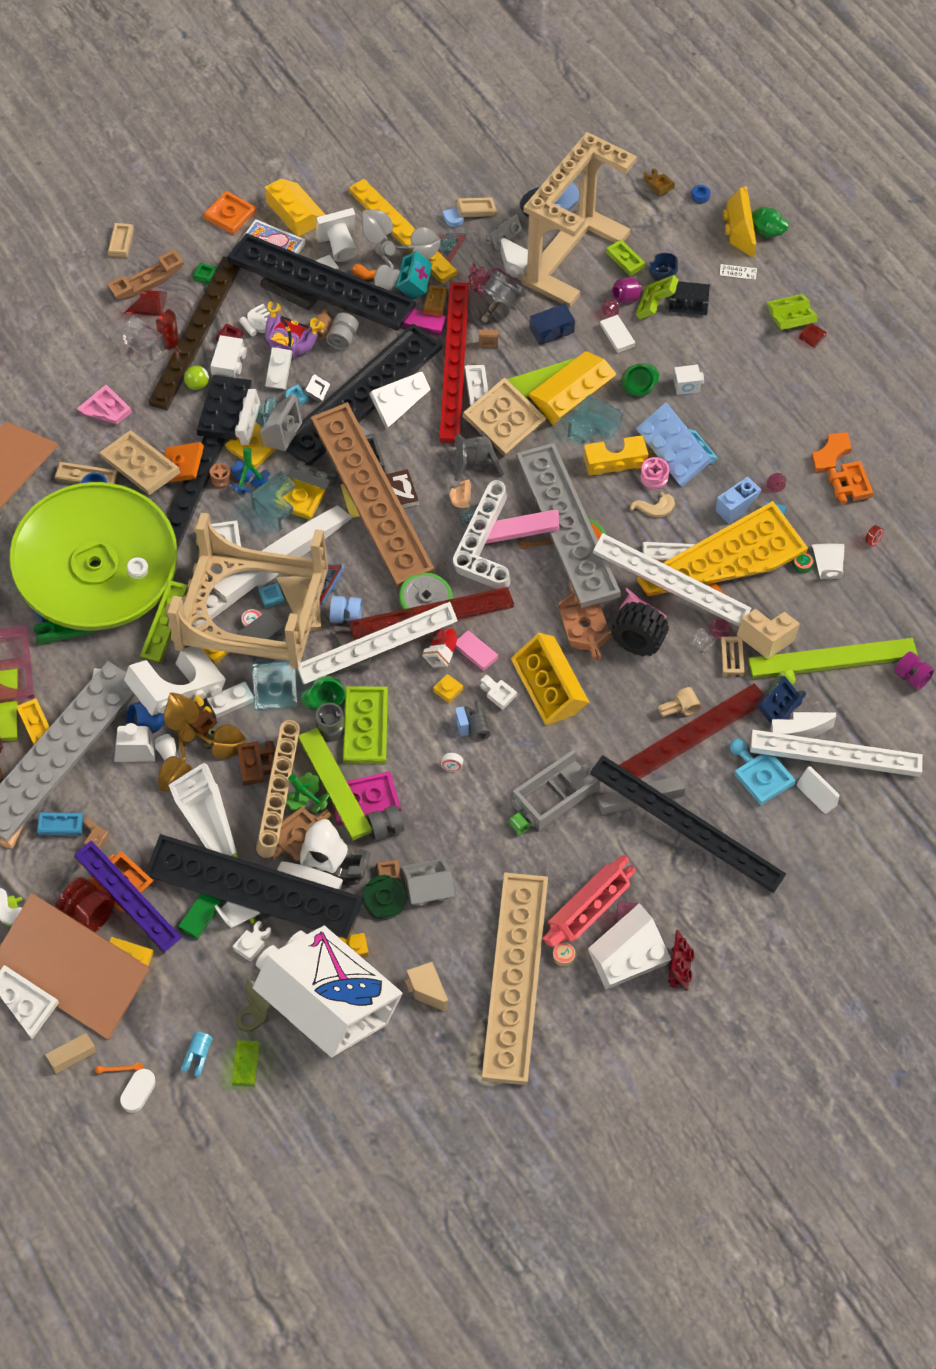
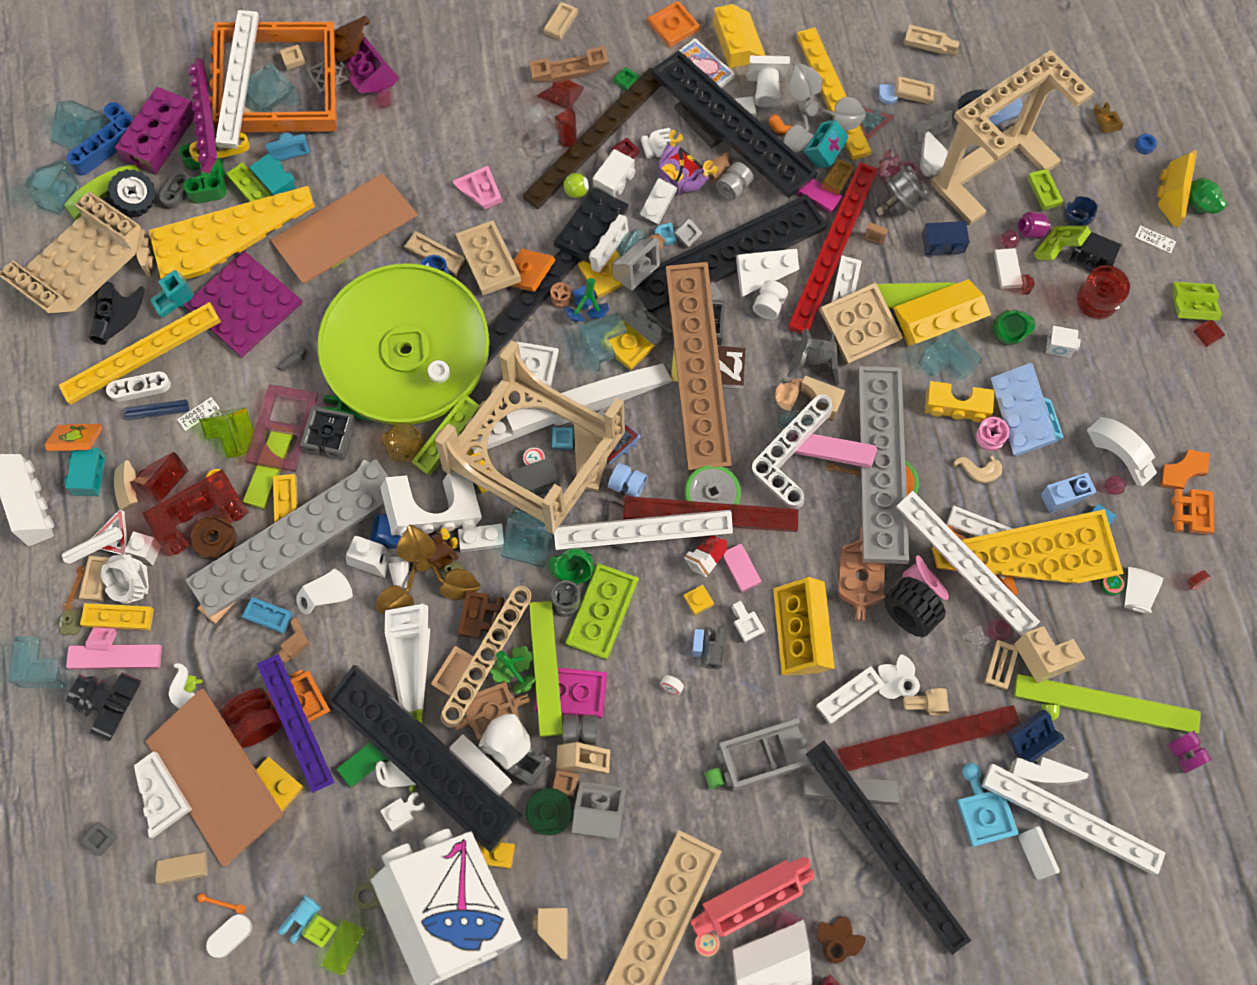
camera: 20 degrees right, 10 degrees up
(52, 655) = (328, 433): none -> piece
(105, 785) = (324, 590): none -> white piece
(124, 642) = (402, 441): none -> clear yellow plant
(218, 1056) = (319, 930): none -> lime plate
(250, 816) = (452, 671): none -> light nougat tile
(396, 844) = (582, 758): none -> tan slope
(414, 421) = (771, 300): none -> white wheel
(474, 160) = (930, 40): none -> tan hinge
(480, 482) = (813, 388): none -> tan arch
(611, 720) = (850, 695): none -> white plate
(639, 341) = (1028, 284): none -> clear red tile
(645, 694) = (896, 676): none -> white plate
(676, 911) = (839, 936): none -> reddish brown plate
(707, 327) = (1103, 292): none -> clear red wheel
(775, 445) = (1127, 445): none -> white arch

